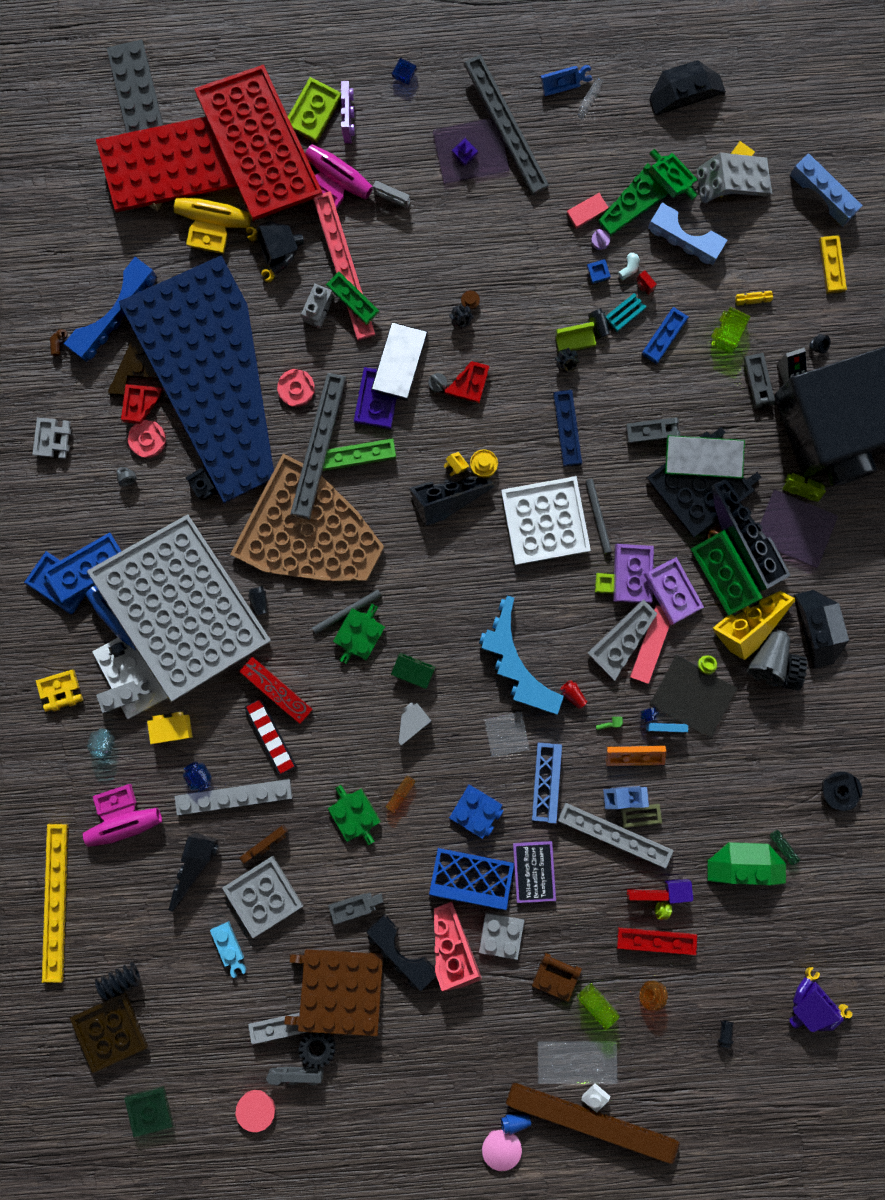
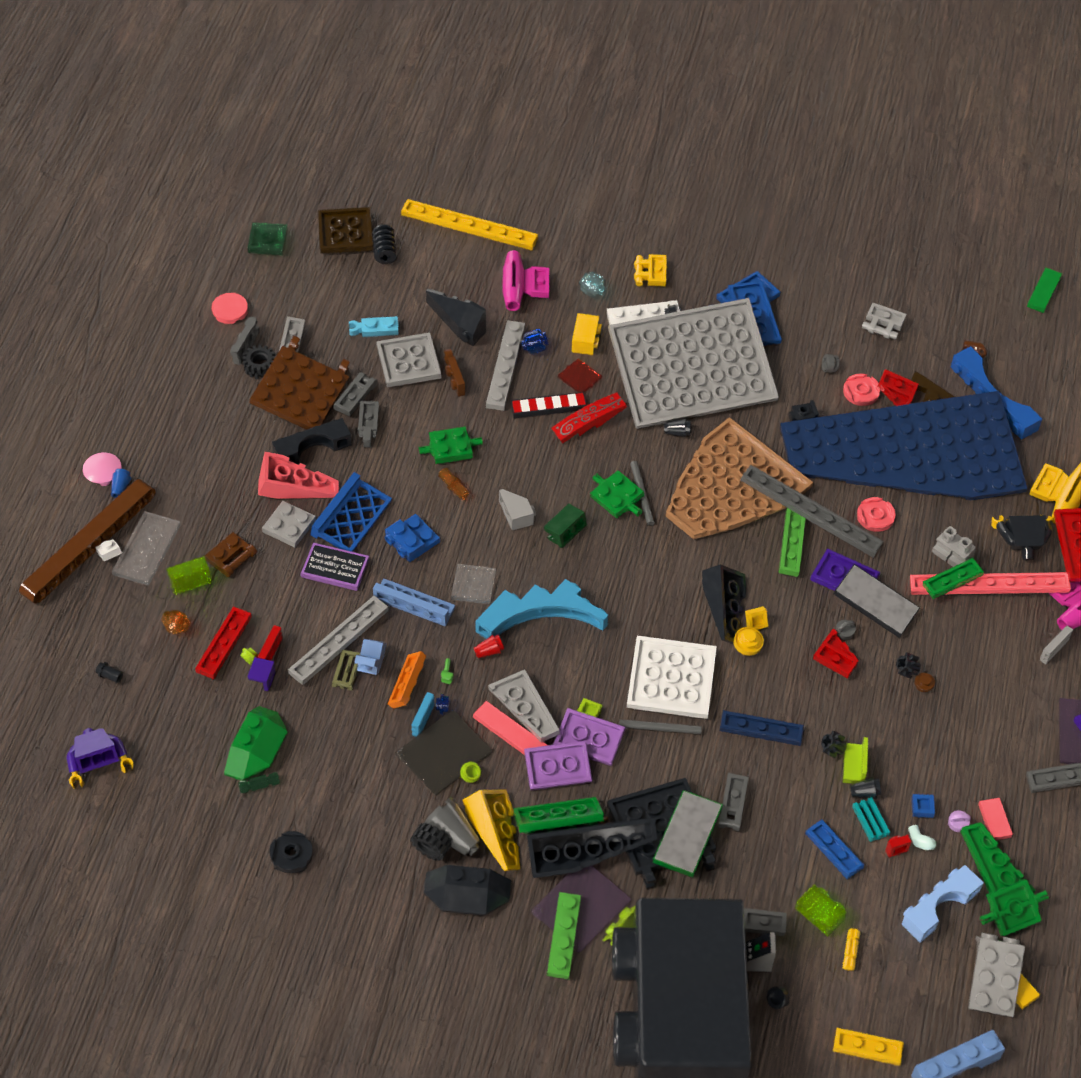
camera: 100 degrees right, 30 degrees down
(121, 695) = (628, 304): light grey plate -> none
(222, 718) = (579, 376): none -> clear red piece
(324, 933) = (355, 393): none -> dark grey plate
(831, 532) = (563, 935): none -> bright green plate

